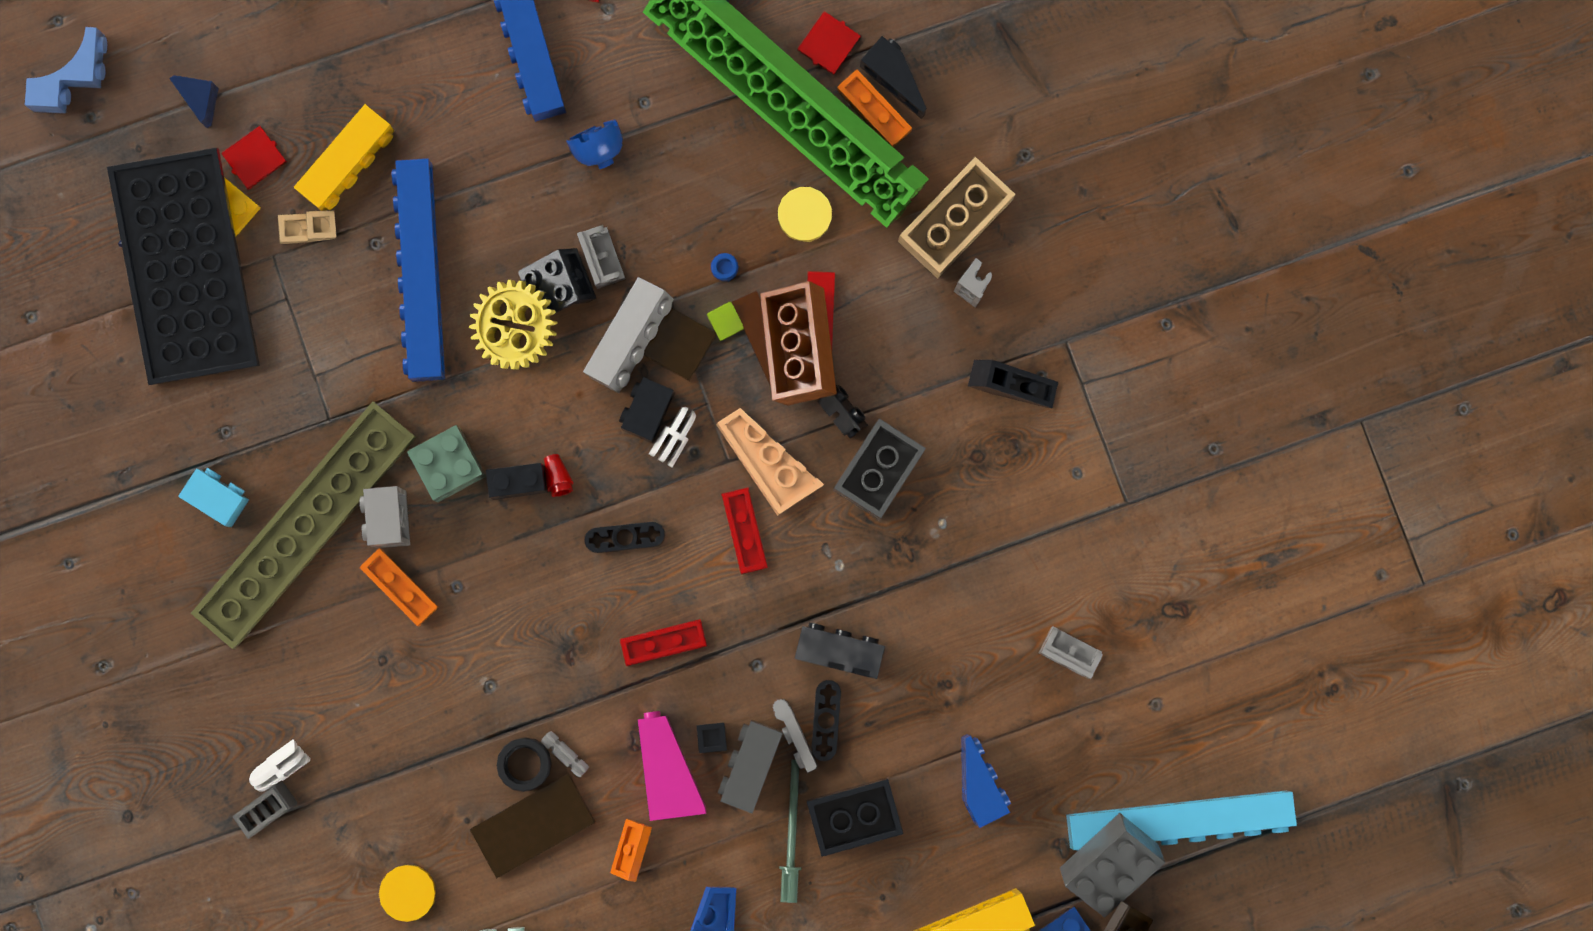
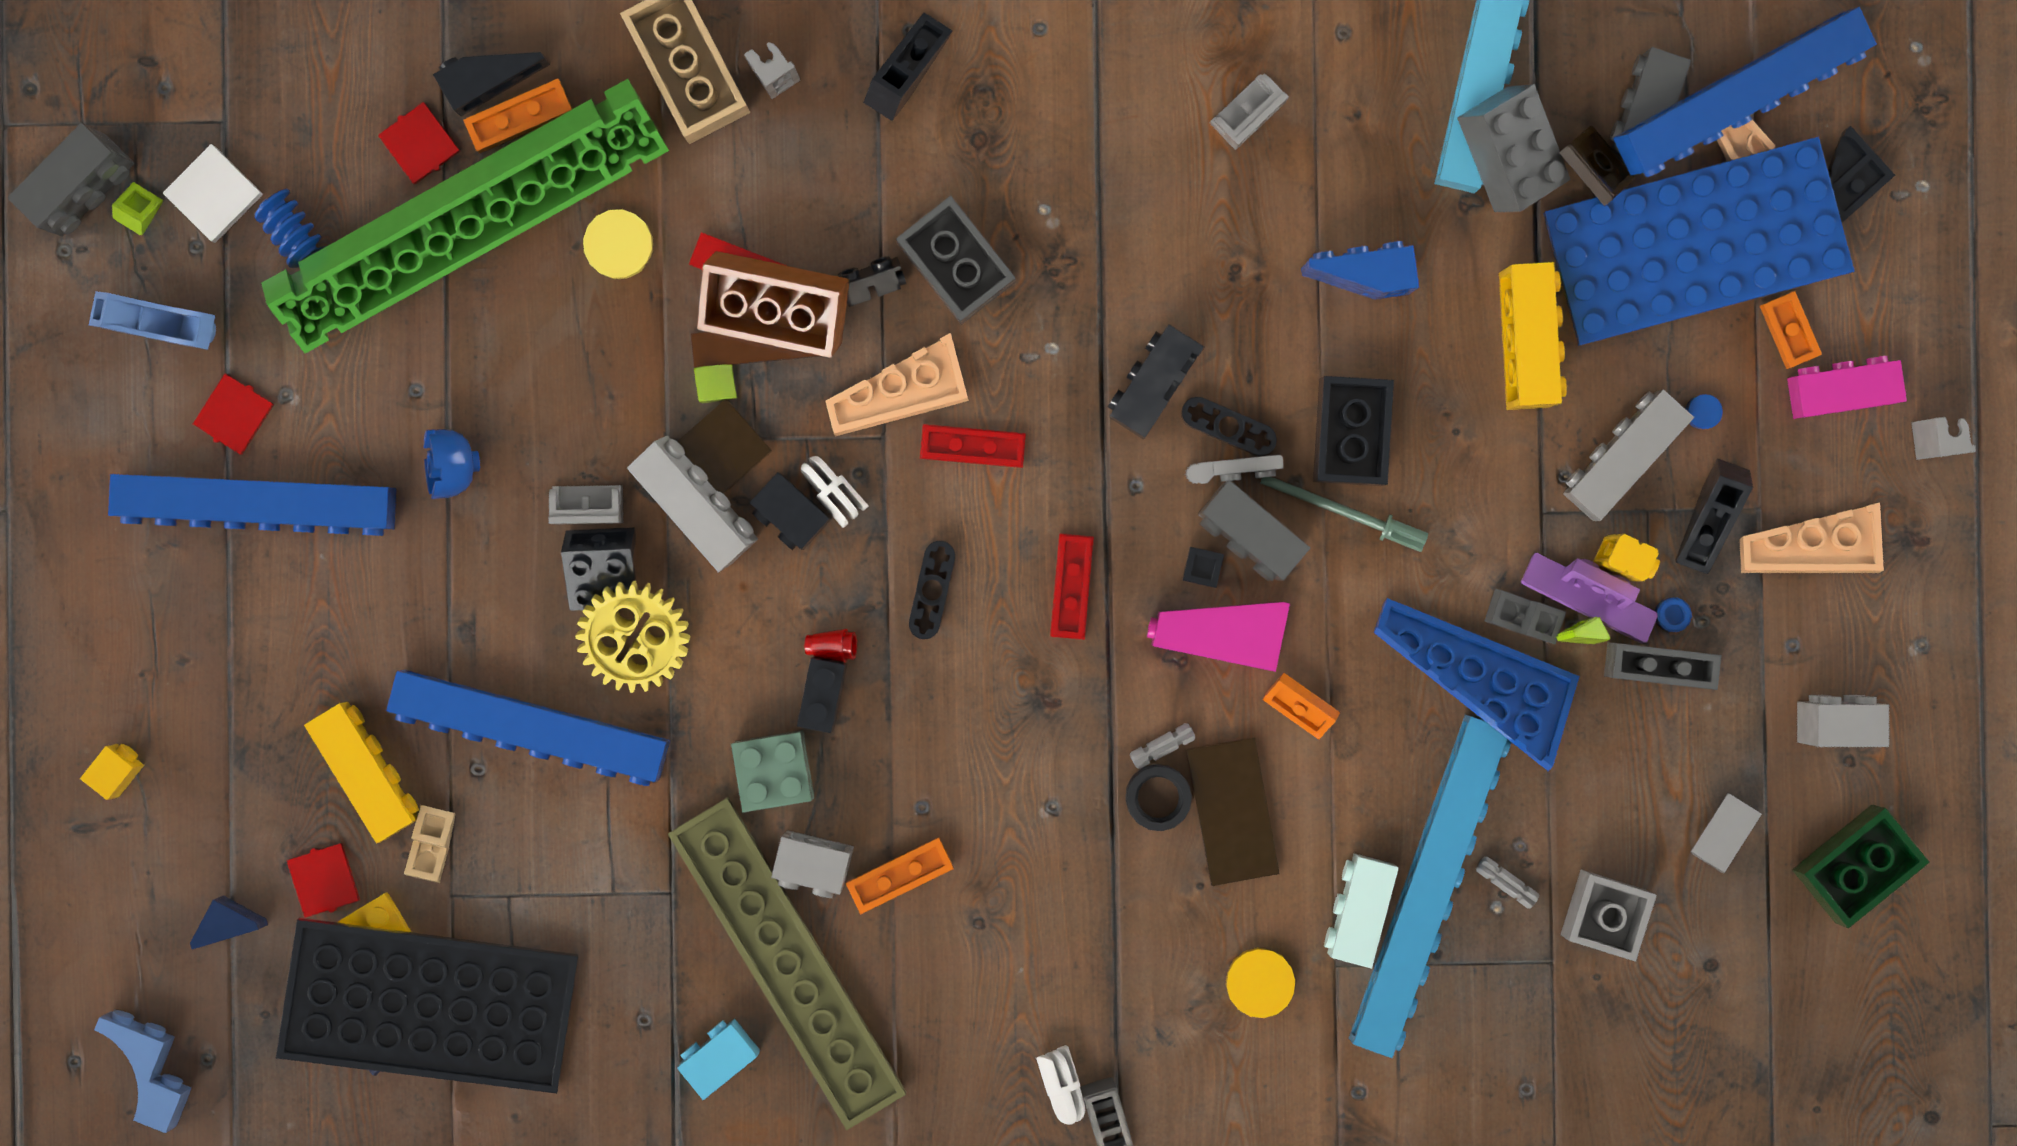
camera: 65 degrees left, 5 degrees up
(724, 267) = (649, 362): blue tile -> none

